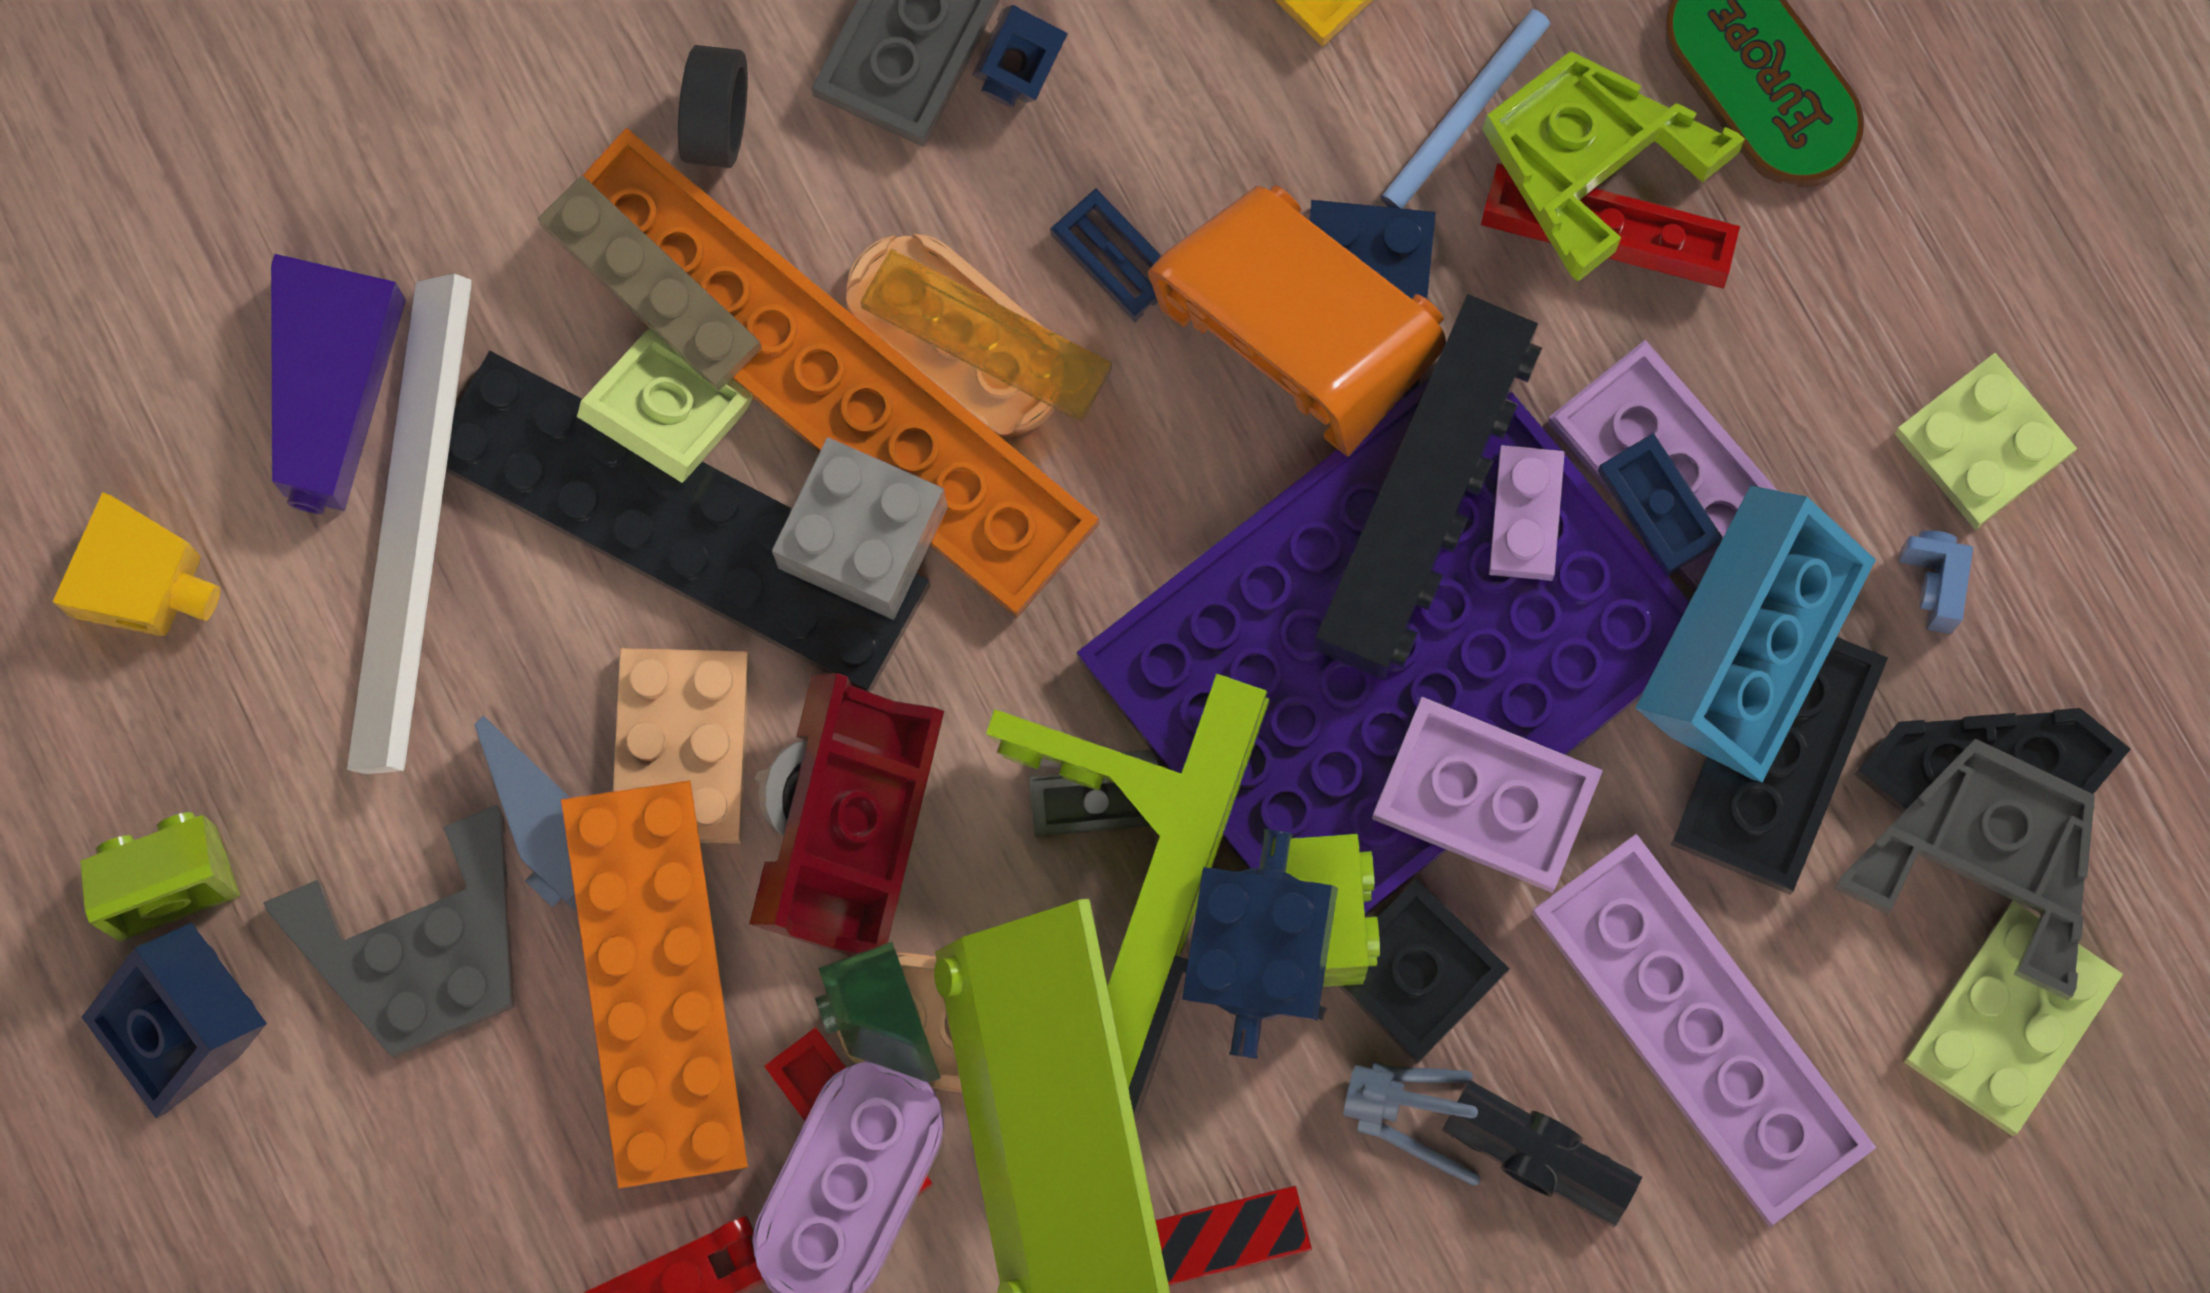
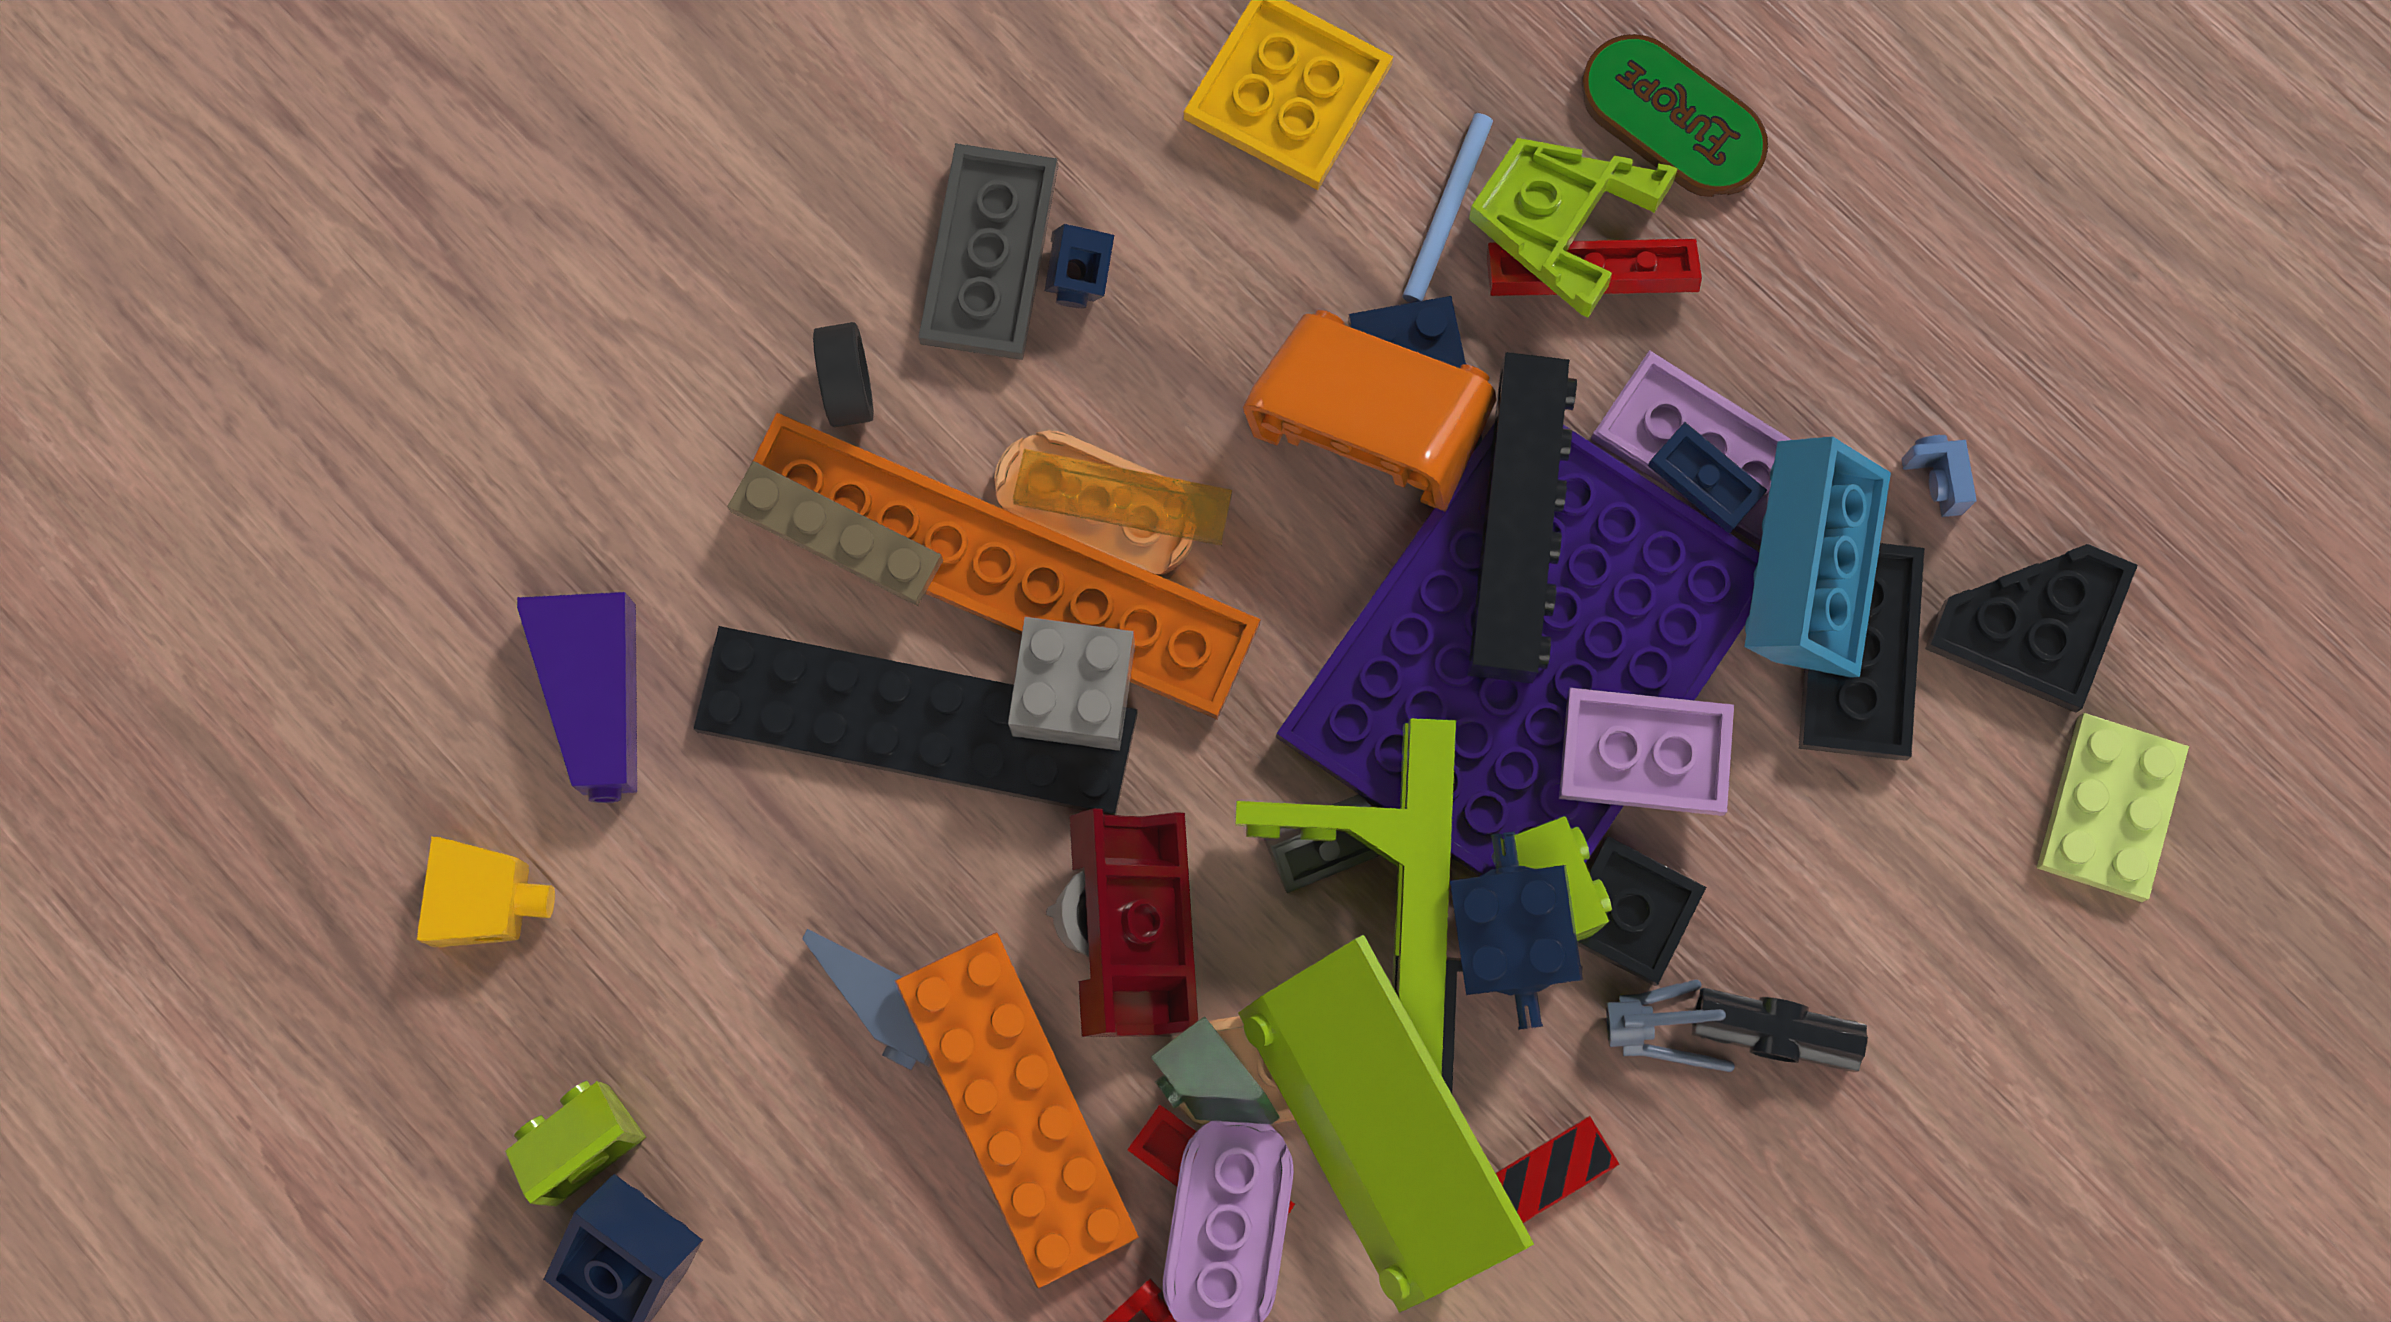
camera: 20 degrees left, 0 degrees up
(409, 525) = (696, 790): white tile -> none
(426, 968) = (822, 1150): dark grey wing -> none
(662, 407) = (877, 631): yellowish green plate -> none
(685, 722) = (972, 887): light nougat plate -> none
(1077, 217) = (1189, 417): dark blue tile -> none
(1526, 513) = (1603, 515): lavender plate -> none
(1703, 1030) = (1875, 891): lavender plate -> none
(1985, 441) = (1940, 354): yellowish green plate -> none
(2005, 831) = (2063, 659): dark grey wing -> none

